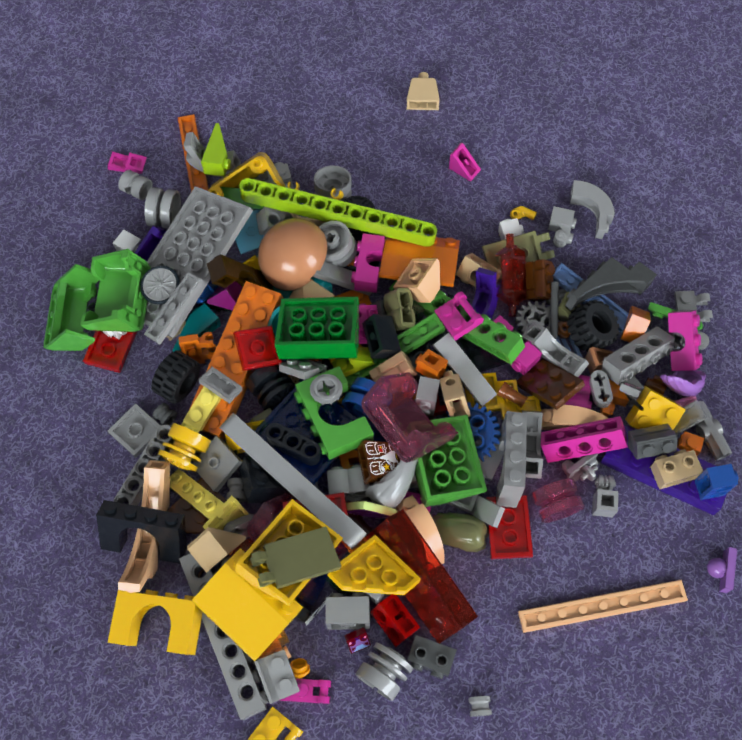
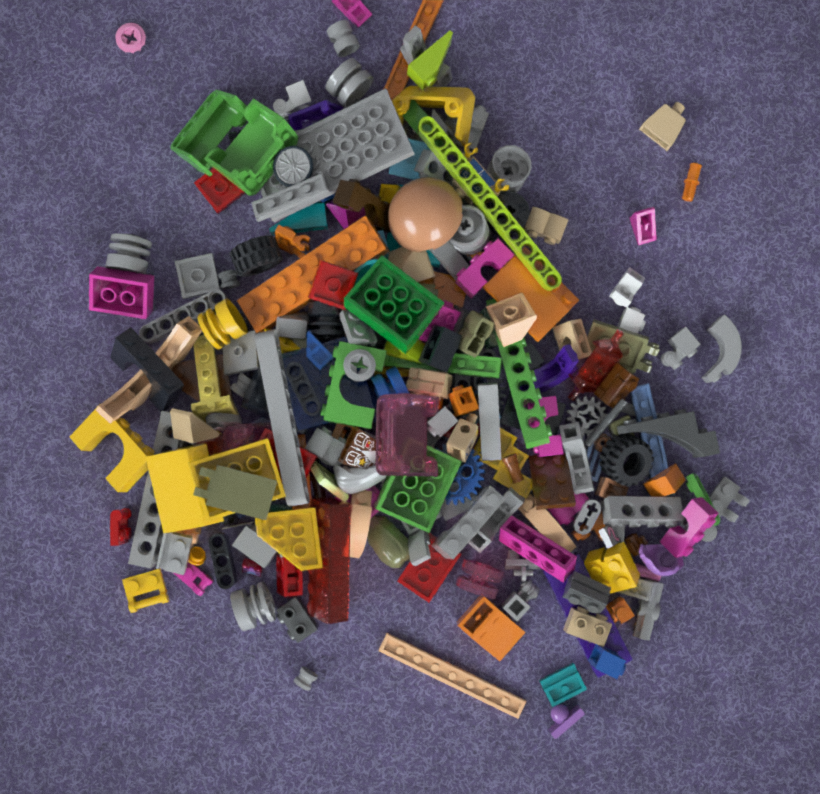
camera: 30 degrees right, 20 degrees up
(62, 449) = (128, 254): none -> light grey wheel
(76, 484) = (121, 292): none -> dark pink brick
(201, 410) = (254, 304): light yellow hinge -> none
(212, 693) = (119, 527): none -> red plate
(220, 385) = (282, 295): light grey plate -> none
(247, 408) = (292, 325): none -> light grey slope
(282, 410) = (317, 352): none -> blue tile
(321, 644) = (221, 570): none -> black beam
(395, 204) = (545, 225): none -> tan brick
(453, 320) = (510, 374): dark pink plate -> none
(473, 116) = (691, 182): none -> orange axle
(487, 212) = (627, 287): none -> white brick
(521, 212) = (657, 308): yellow arm -> none
(599, 537) = (490, 627): none -> orange slope
(698, 542) = (562, 684): none -> teal plate

